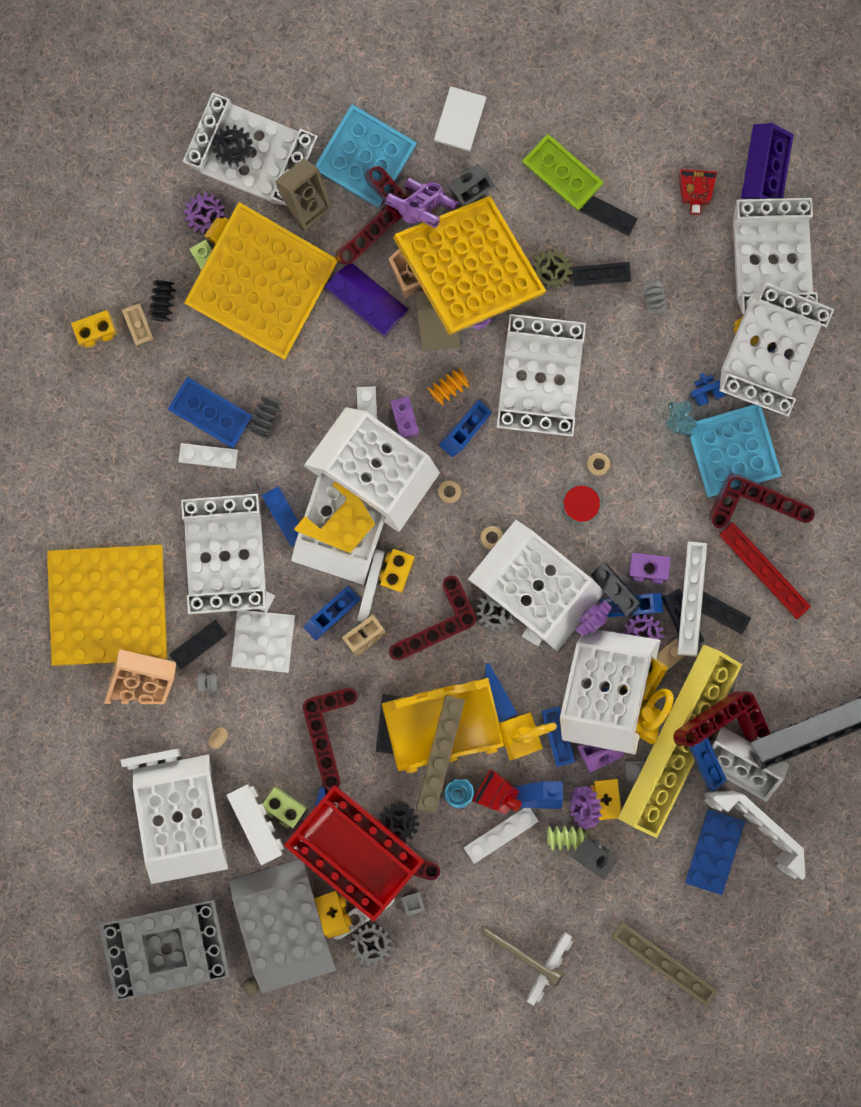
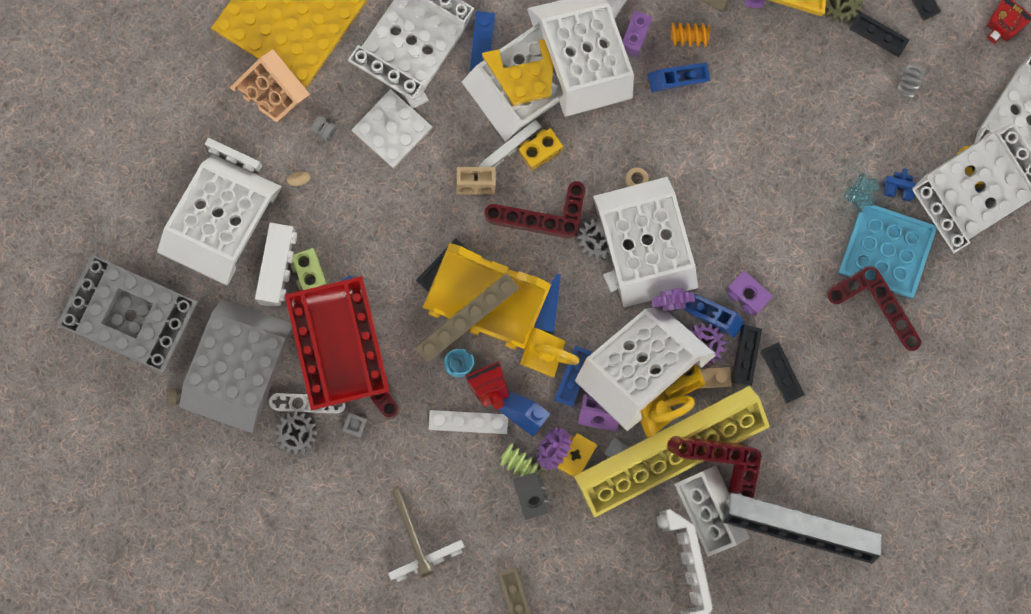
camera: 35 degrees right, 5 degrees down
(198, 644) = (338, 94): black plate -> none
(323, 732) = (385, 234): dark red beam -> none
(326, 906) = (283, 385): yellow brick -> none
(331, 613) = (462, 145): blue slope -> none
(408, 814) = (393, 364): black gear -> none
(455, 485) = (629, 126): tan piece -> none
(544, 348) = (787, 56): white slope -> none
(581, 503) = (730, 204): red tile -> none
(592, 470) = (767, 174): tan piece -> none
(616, 589) = (709, 291): black plate -> none
(692, 599) = (766, 344): white tile -> none
(708, 765) = (682, 485): blue plate -> none
(714, 852) = (634, 566): blue plate -> none
(764, 570) = (843, 366): red tile -> none

